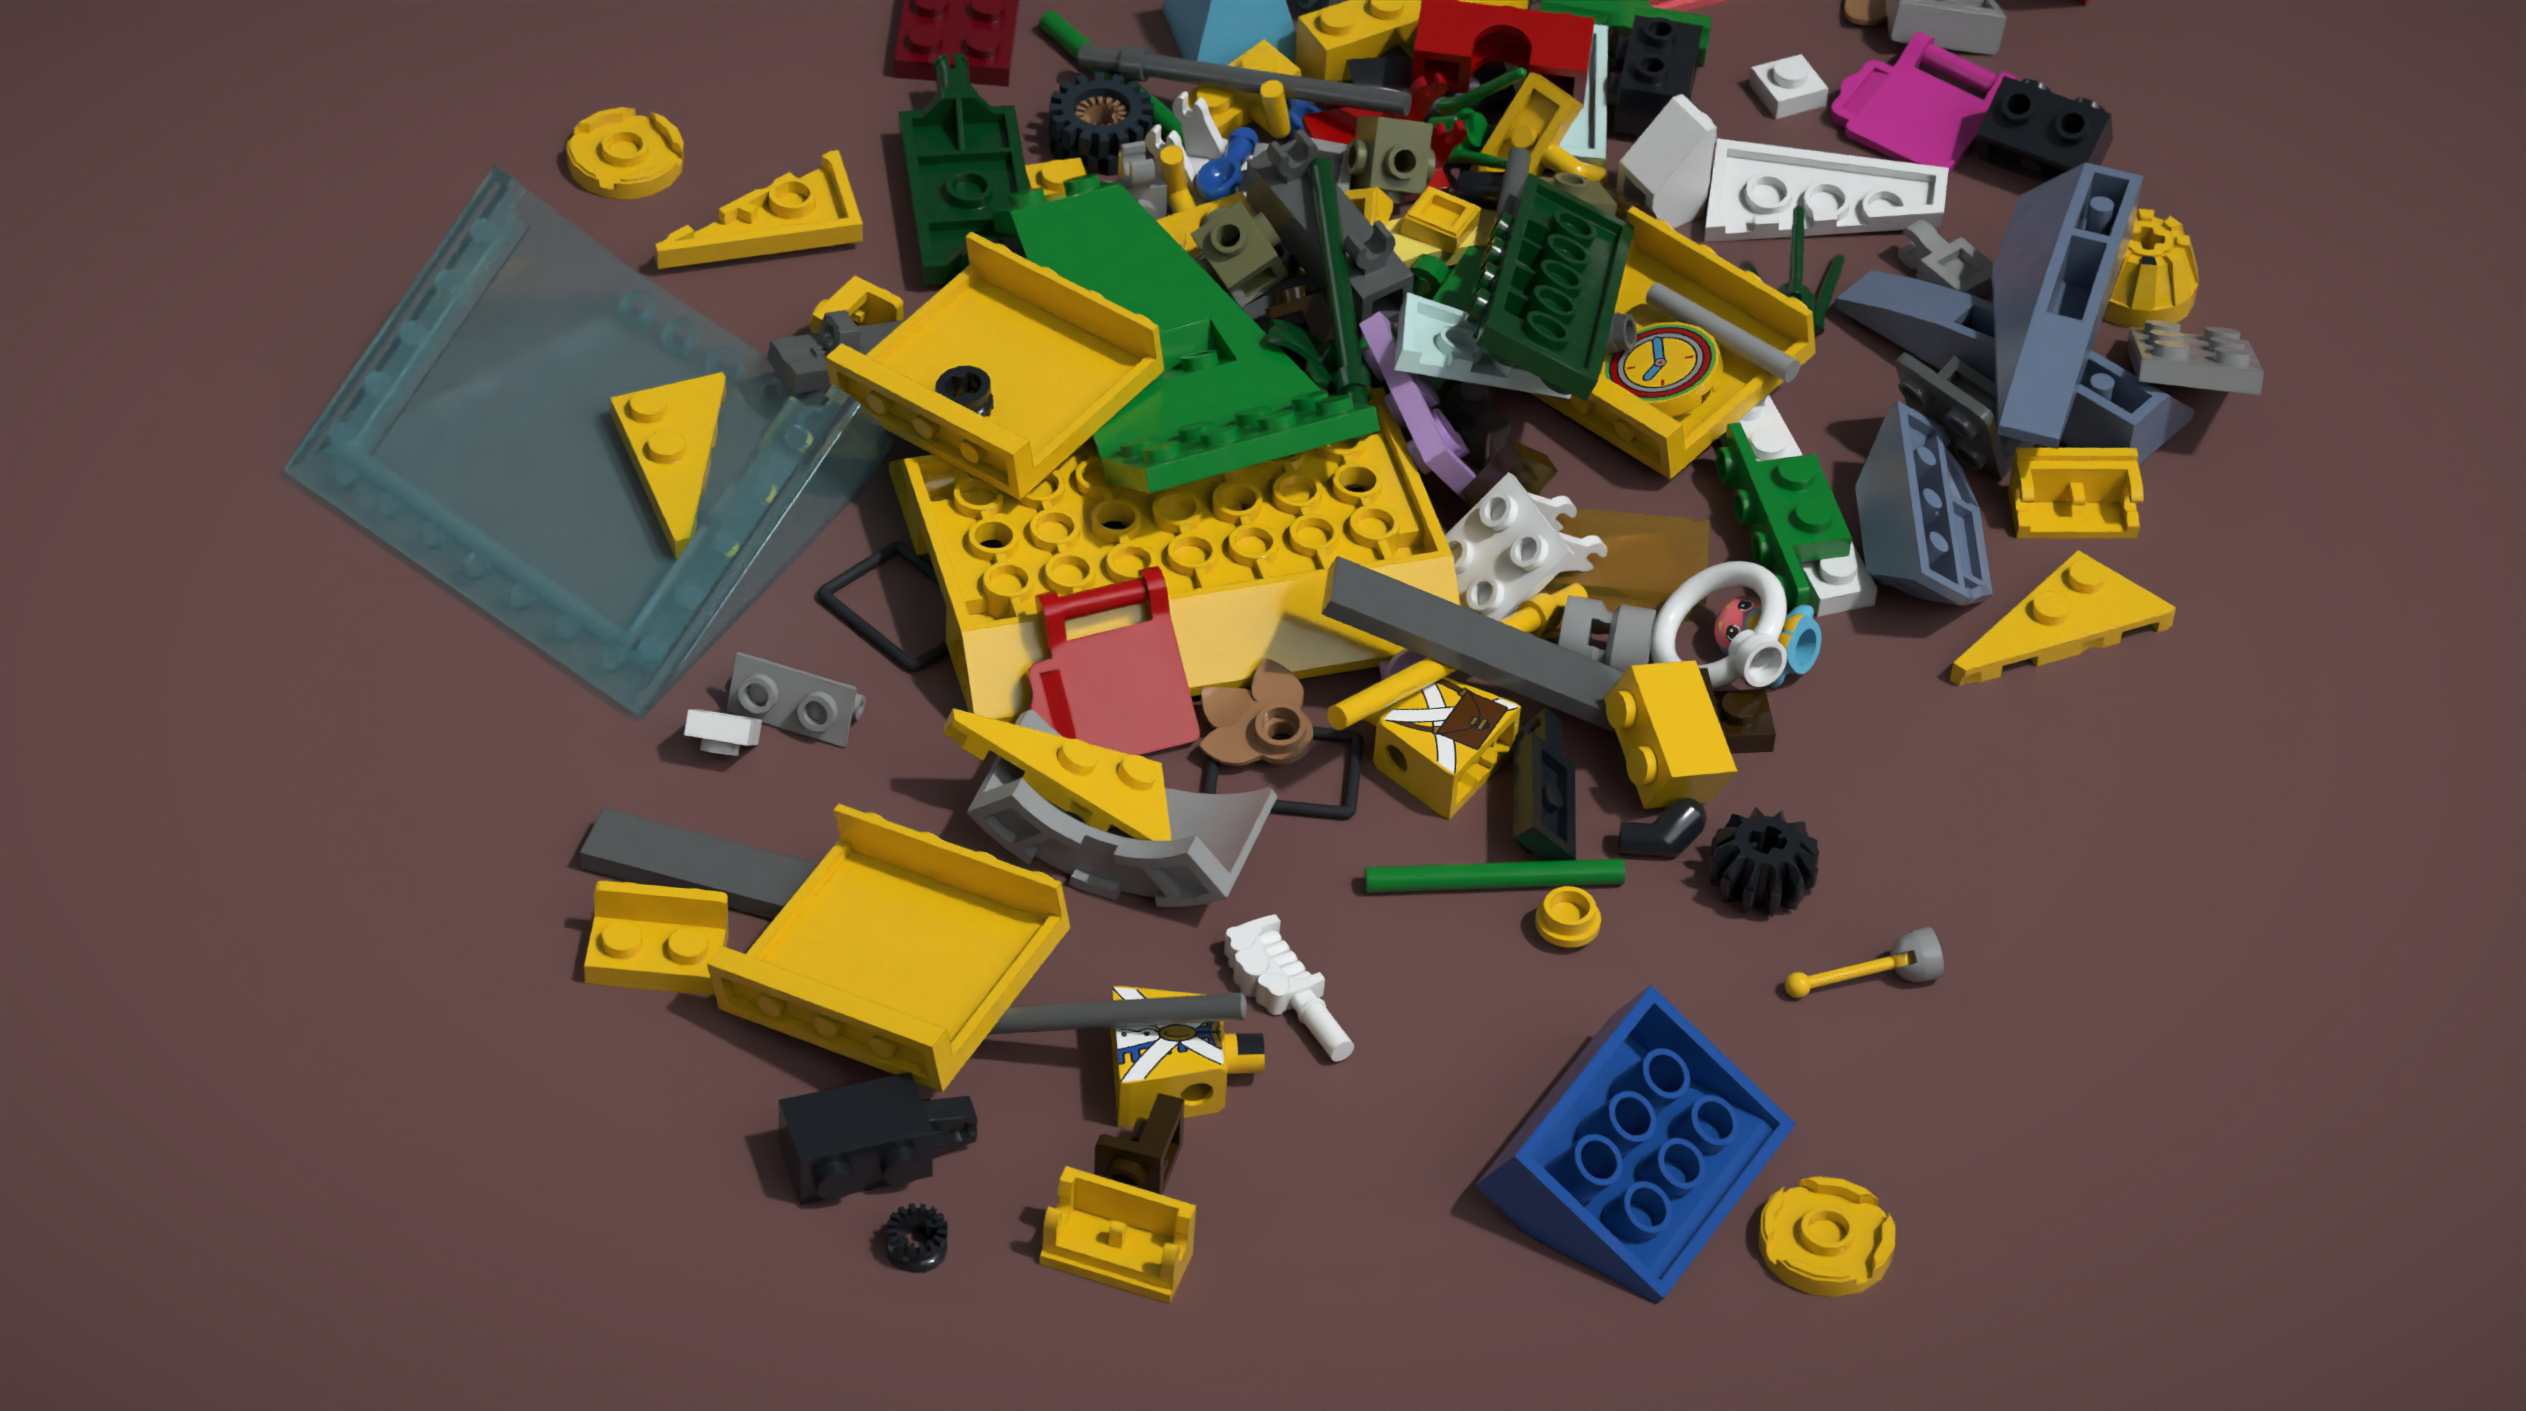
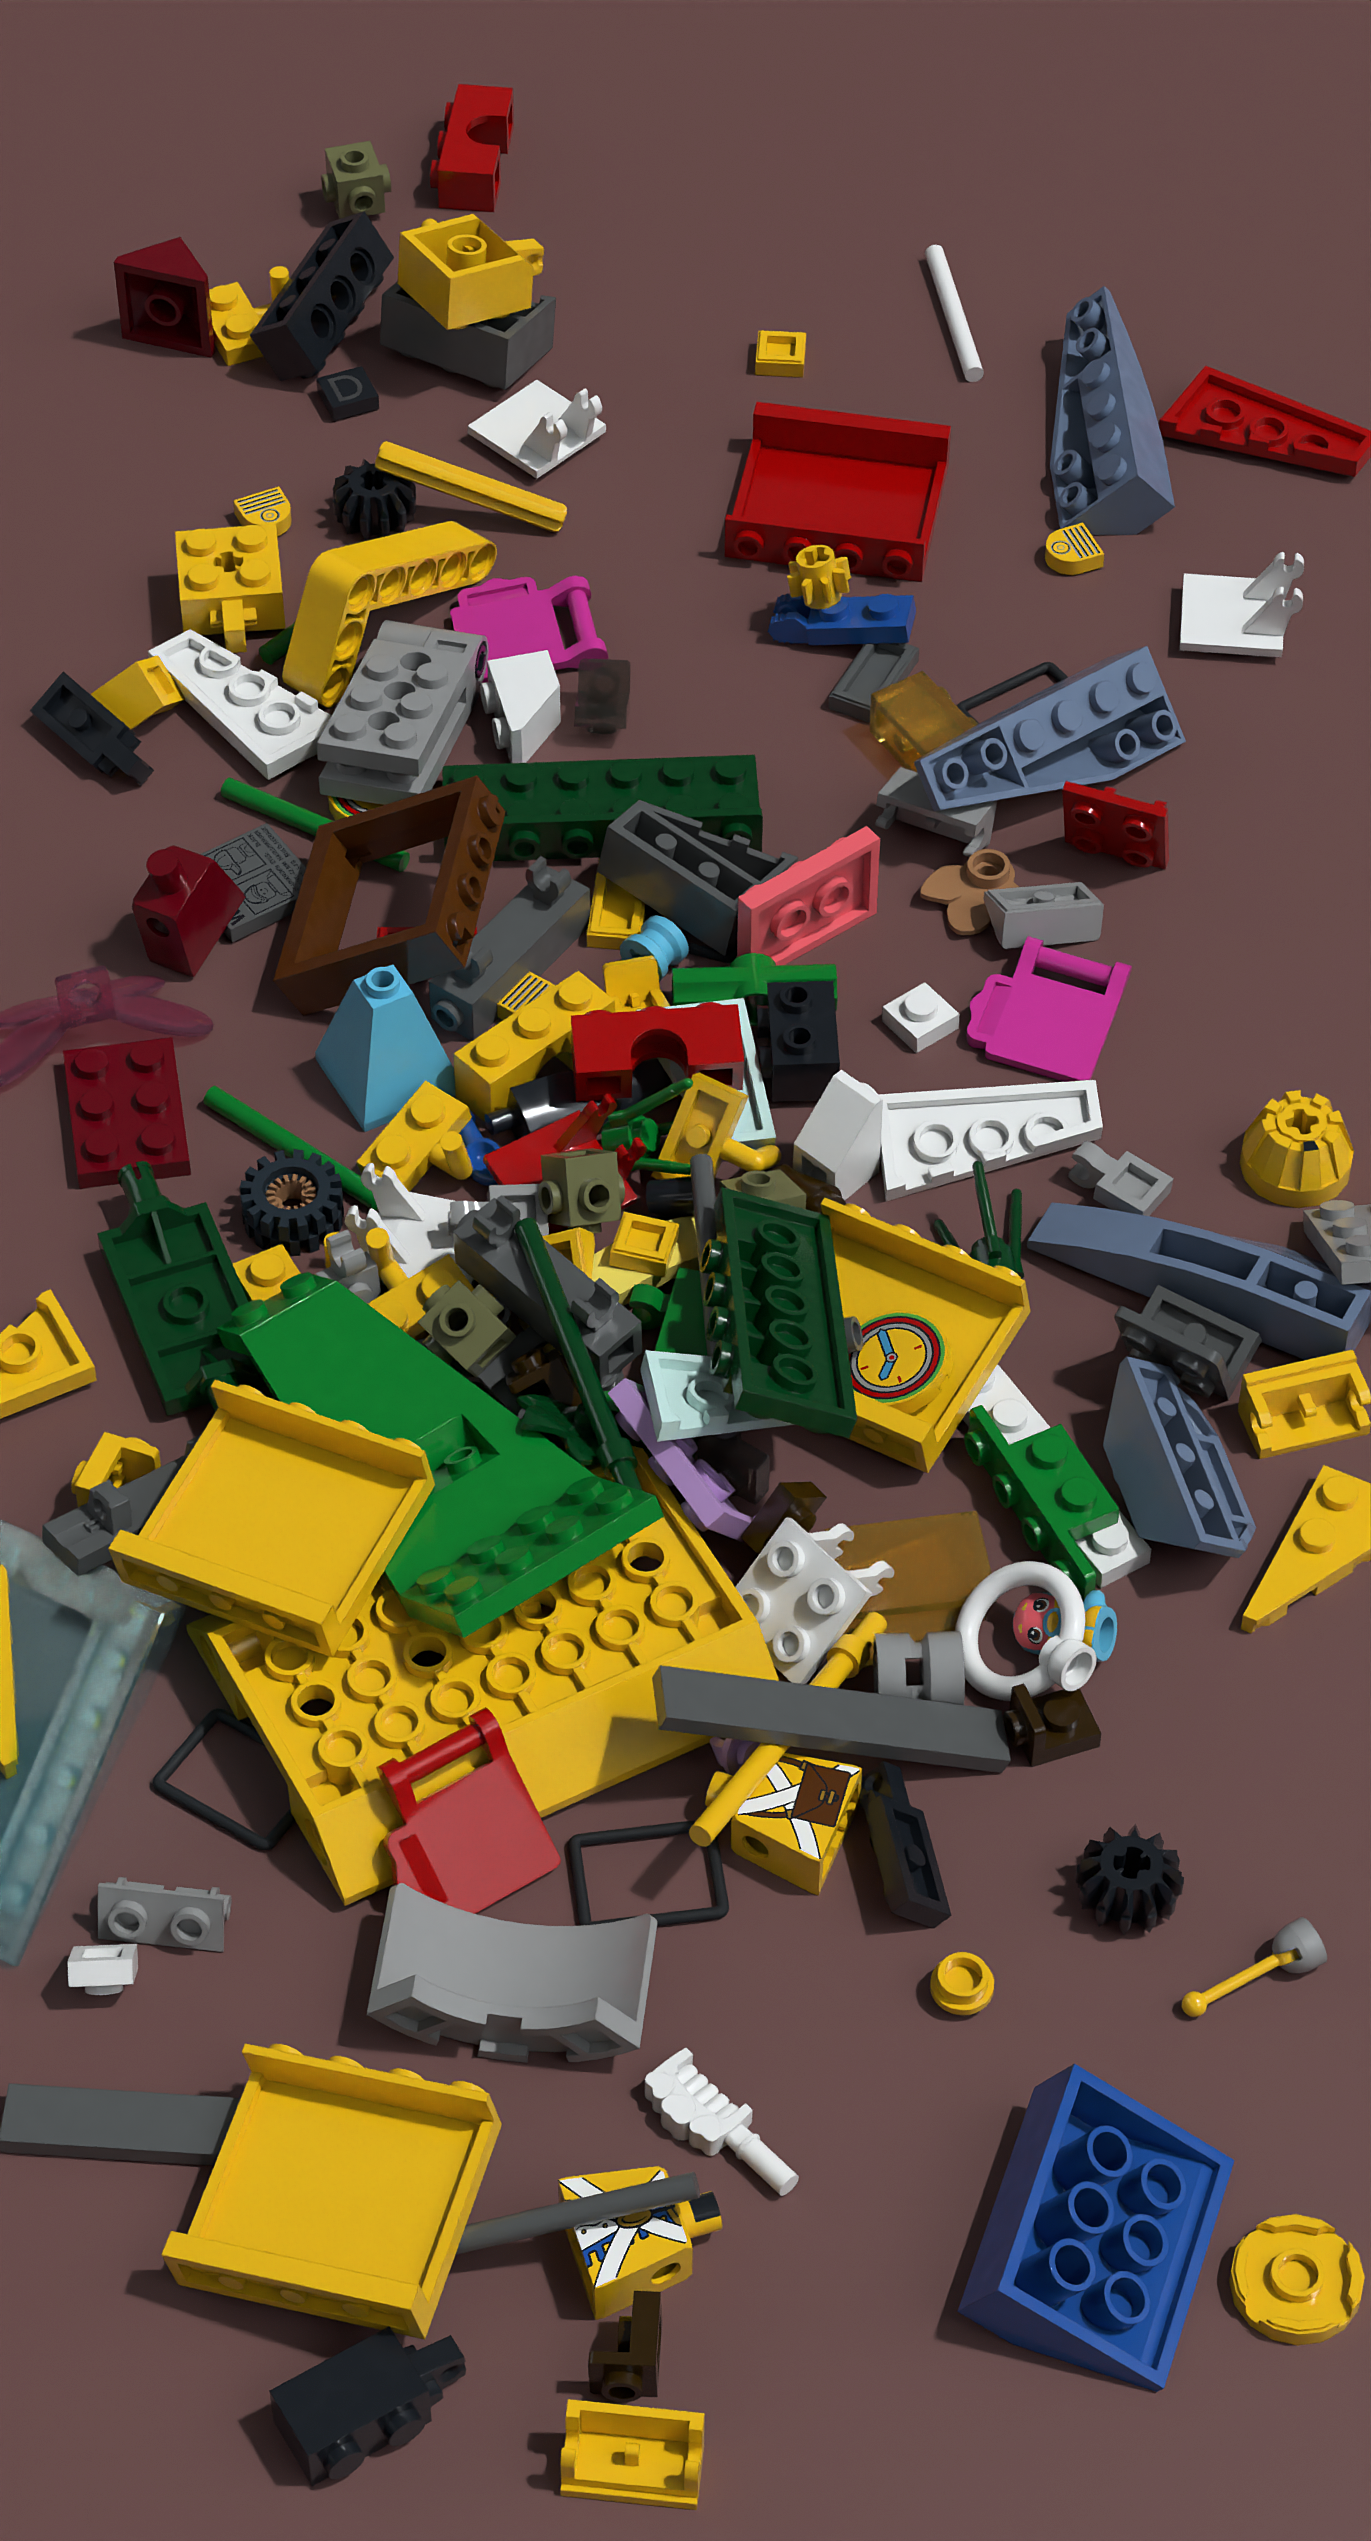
camera: 10 degrees left, 5 degrees up
(655, 937) = (98, 2221): yellow bracket -> none
(916, 1221) = (453, 2489): black bush -> none
(962, 381) = (244, 1542): black bush -> none
(1079, 777) = (470, 1947): yellow wing -> none
(1140, 63) = (314, 1132): dark grey bar -> none
(1223, 175) = (424, 1239): blue piece -> none
(1250, 718) = (605, 1829): medium nougat plate -> none
(1494, 875) = (878, 1950): green bar -> none
(1668, 834) = (1031, 1865): black arm -> none
(1669, 733) = (1008, 1765): yellow brick -> none
(1724, 332) = (942, 1312): light grey bar -> none
(2042, 131) = (1174, 1024): black brick -> none
(2054, 292) = (1239, 1212): sand blue wedge -> none

